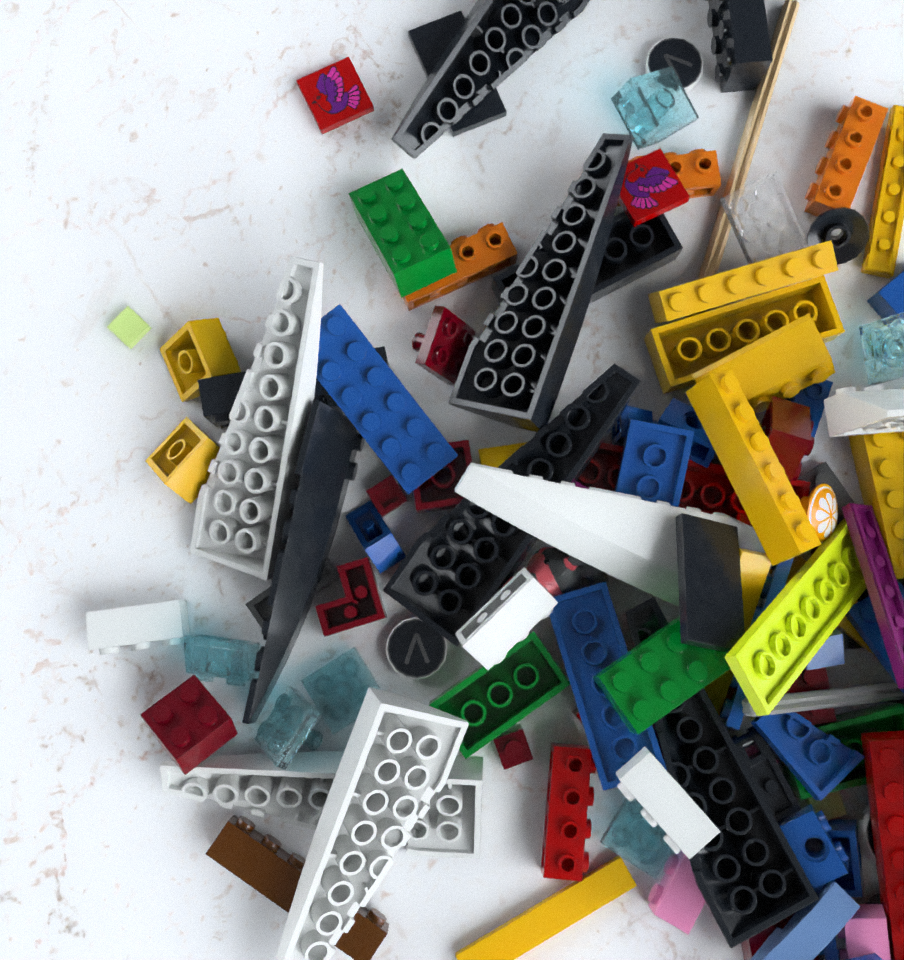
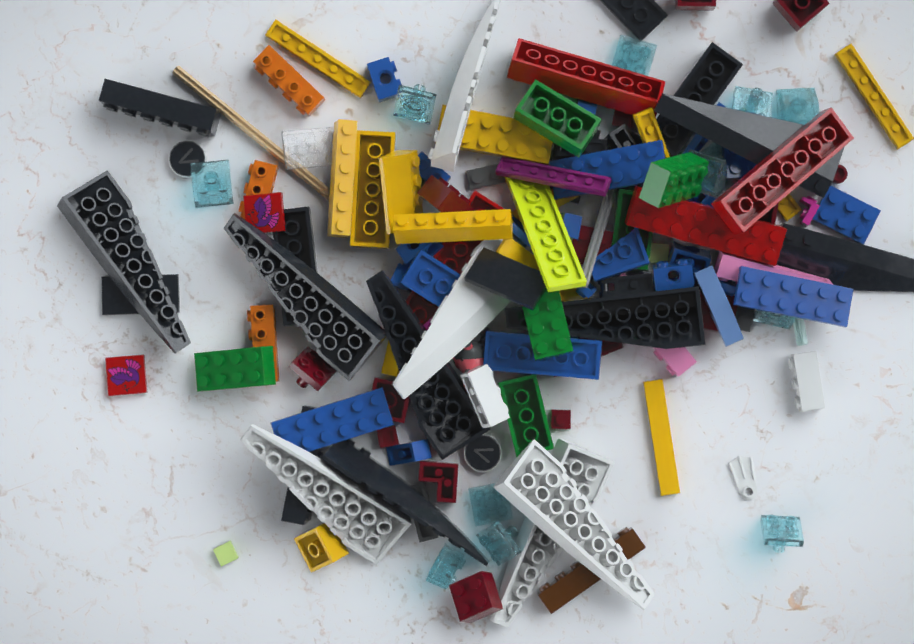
camera: 65 degrees left, 5 degrees up
(137, 626) = (408, 609): white brick -> none
(198, 353) = (262, 517): yellow slope -> none
(566, 812) = (607, 403): red brick -> none
(636, 839) = (635, 364): clear light blue plate -> none
(666, 804) = (616, 349): white brick -> none
(821, 510) = (494, 191): dish -> none
(852, 237) = (340, 108): black dish -> none

